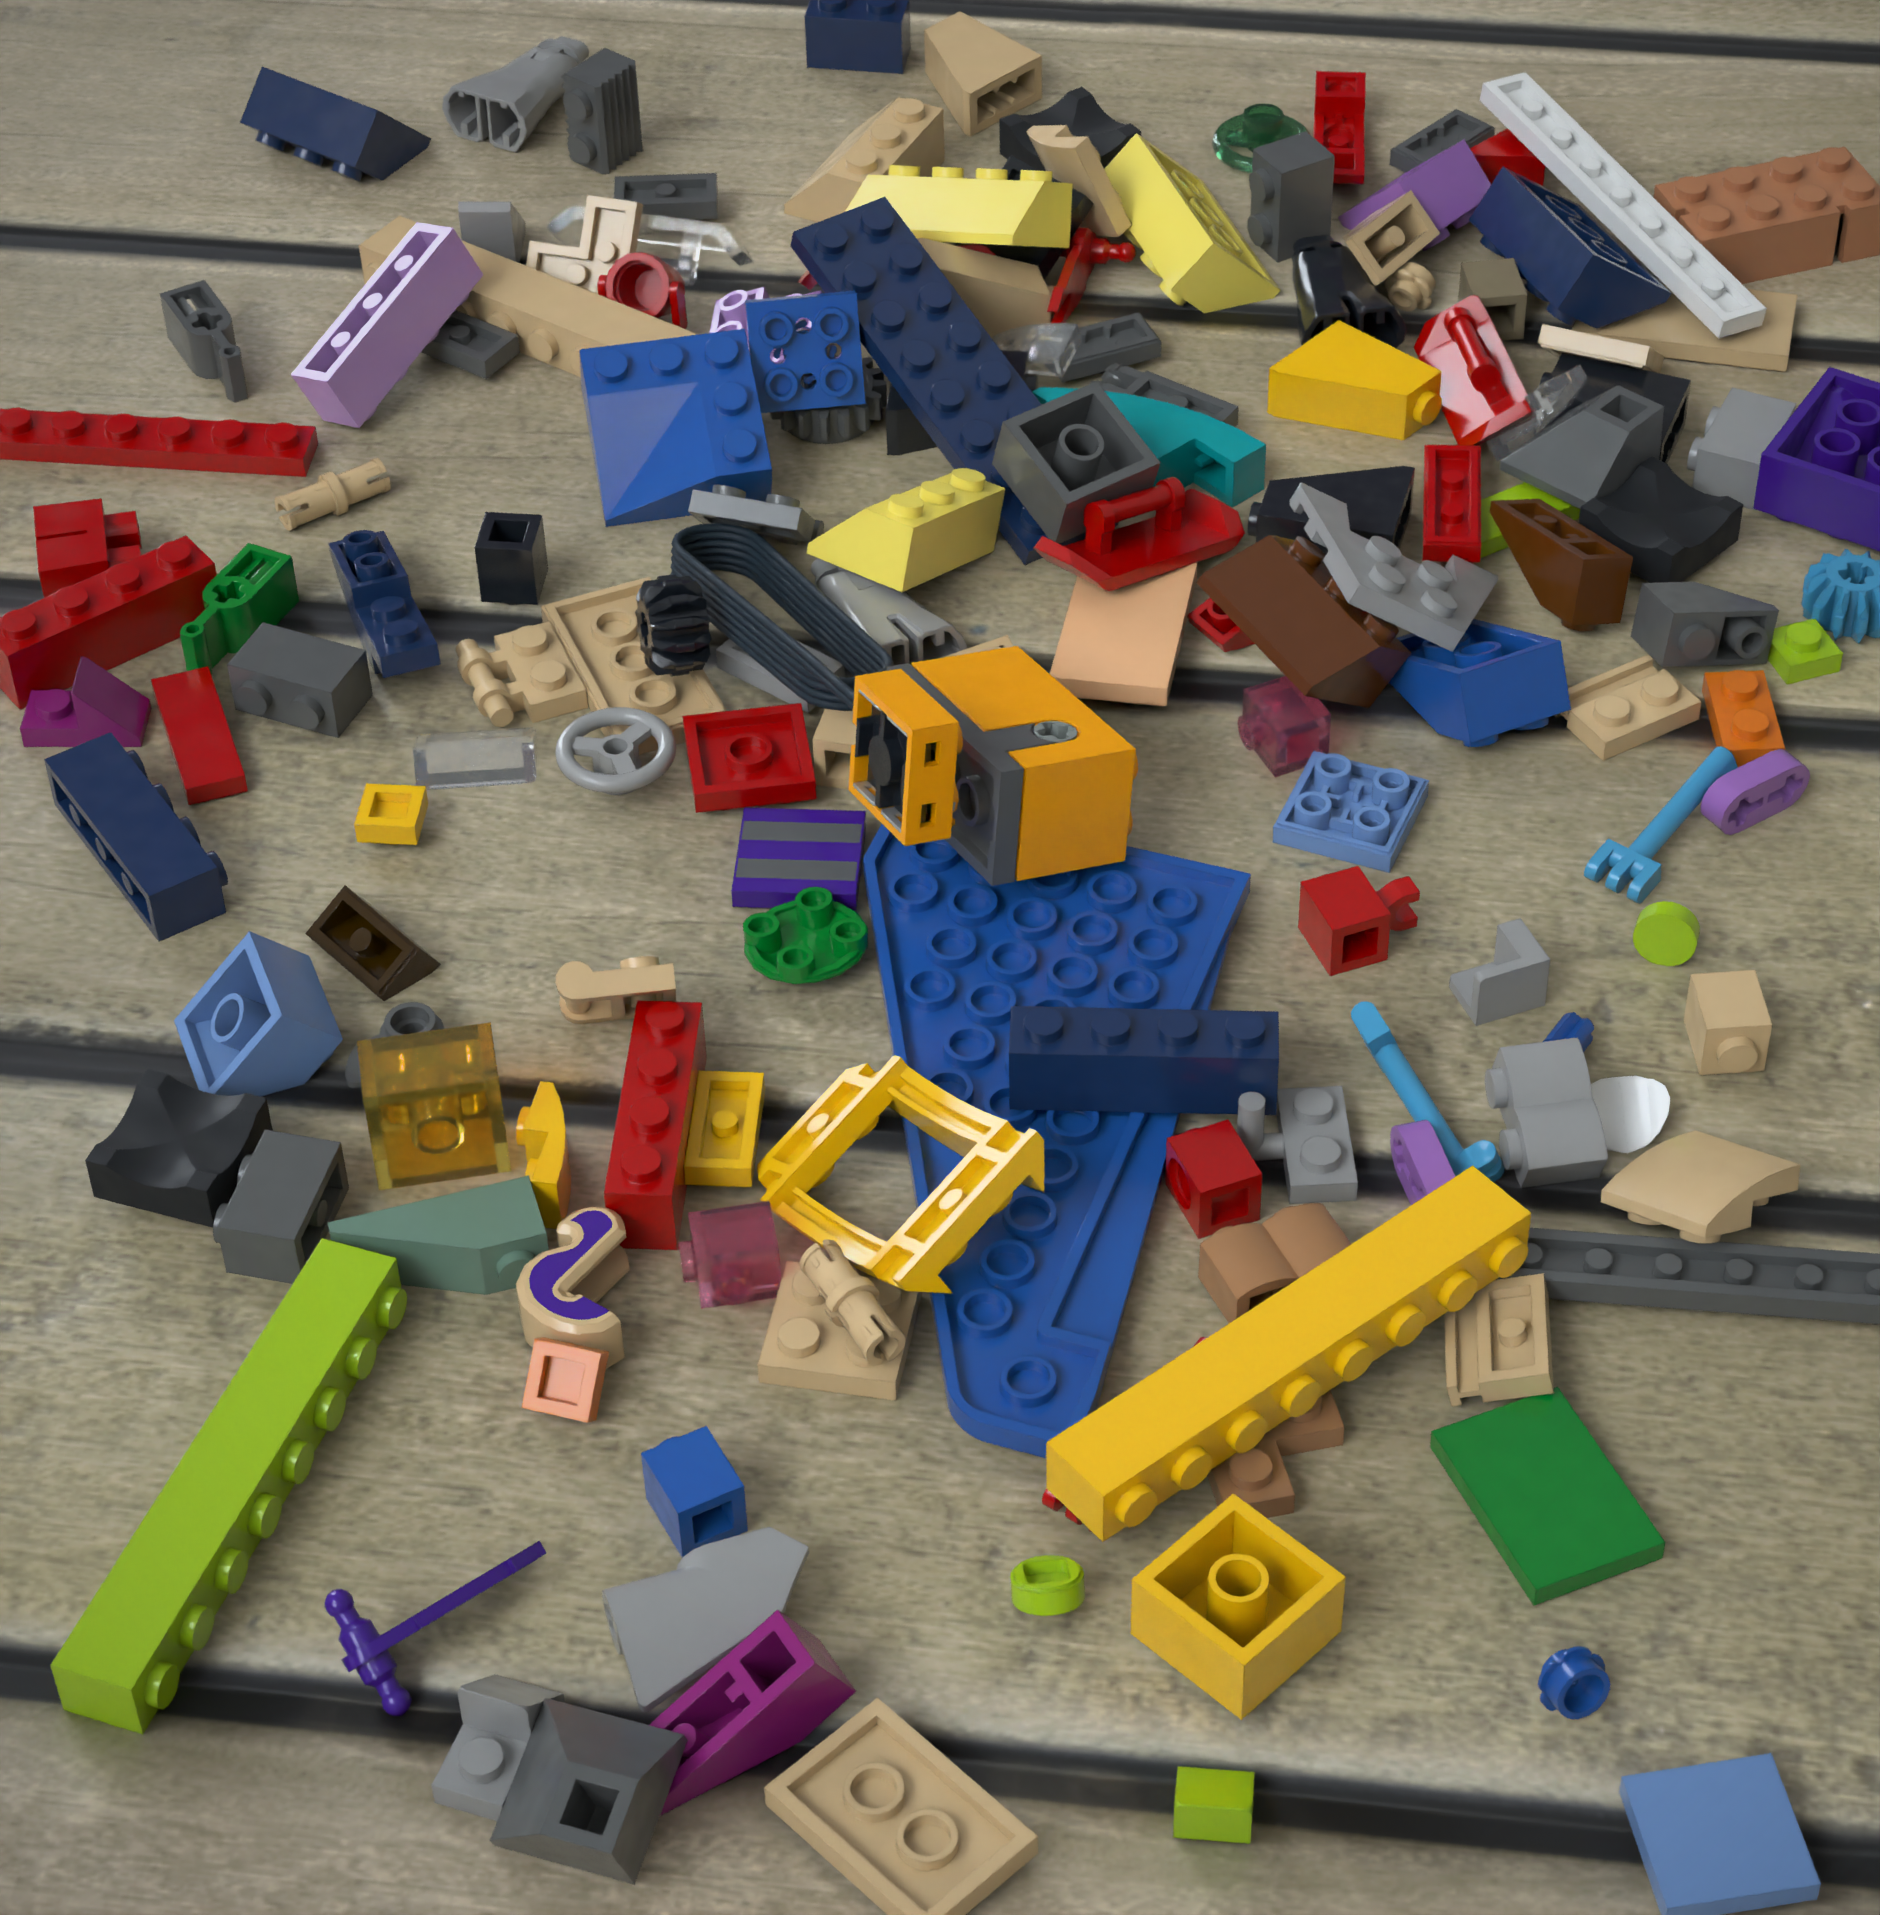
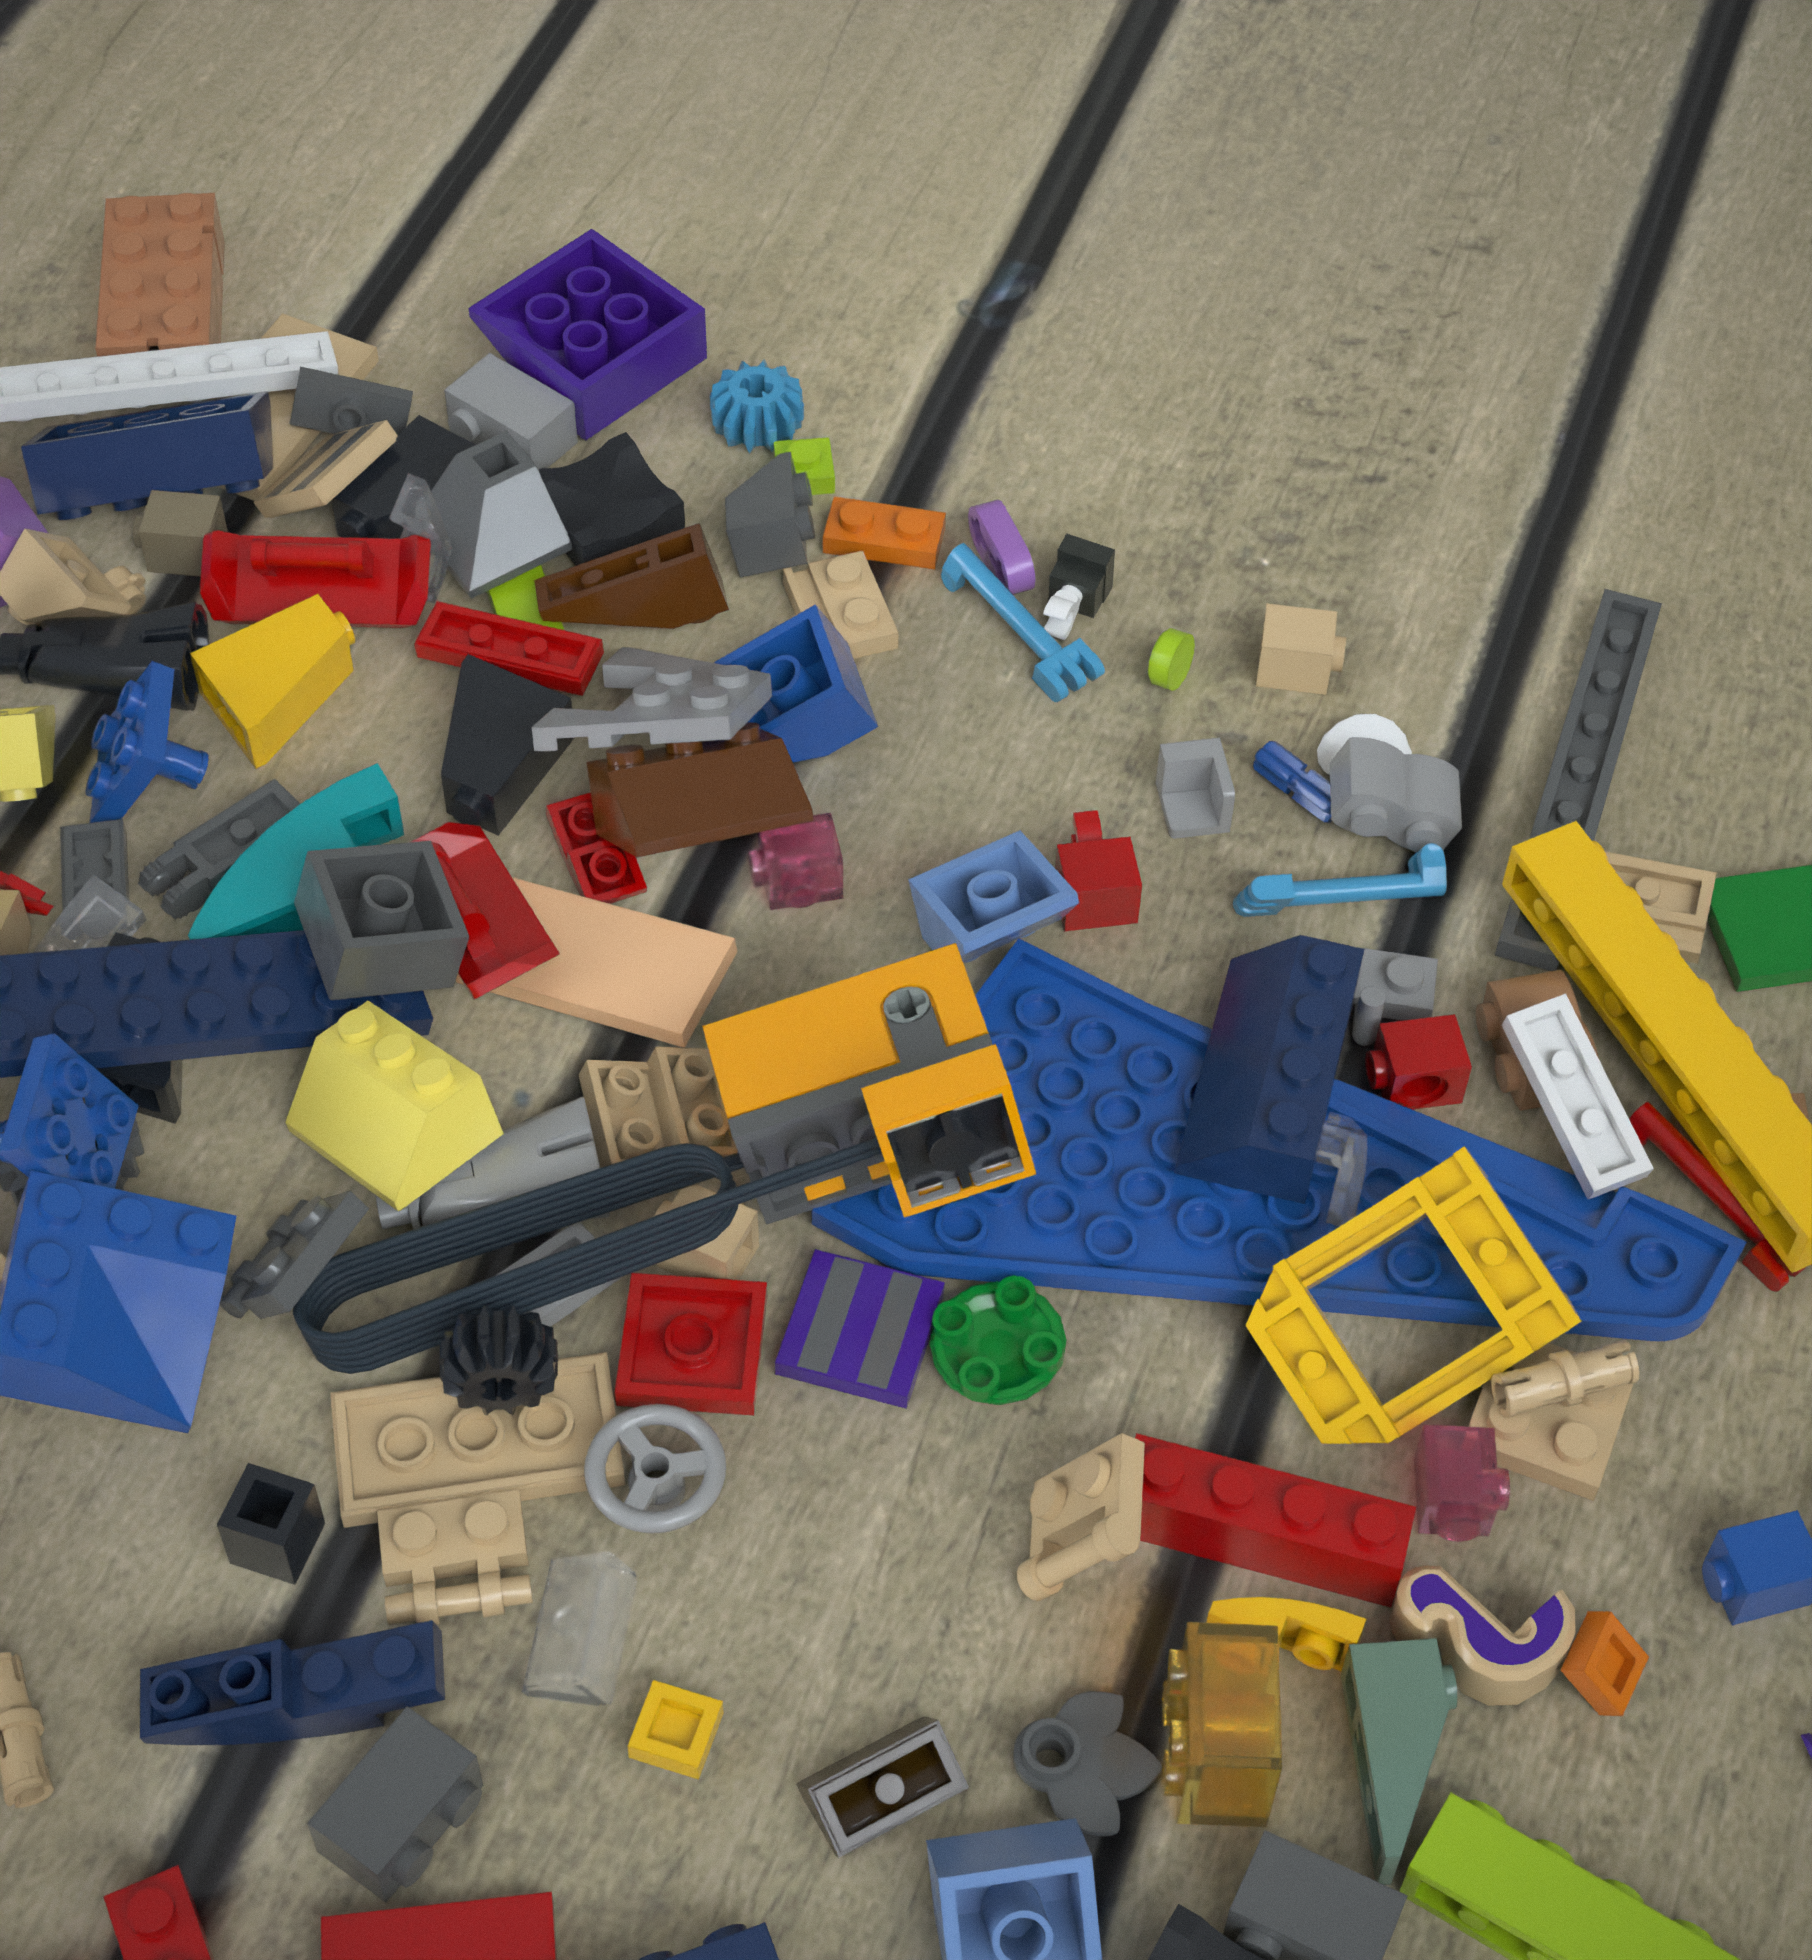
camera: 80 degrees left, 10 degrees up
(248, 591) = (208, 1844): green piece -> none
(724, 1129) = (1272, 1446): yellow plate -> none
(1052, 1109) = (1344, 1147): none -> clear slope
(1182, 1266) = (1577, 1096): none -> white plate
(1227, 320) = (136, 747): none -> blue plate
(1266, 830) = (990, 897): none -> medium blue slope
(1351, 811) = (913, 834): medium blue tile -> none
(1419, 1159) = (1442, 906): medium lavender beam -> none
(1686, 344) = (343, 403): none -> dark grey plate
(1699, 1185) = (1500, 717): tan slope -> none
(1740, 851) = (1077, 583): none -> pearl dark grey piece

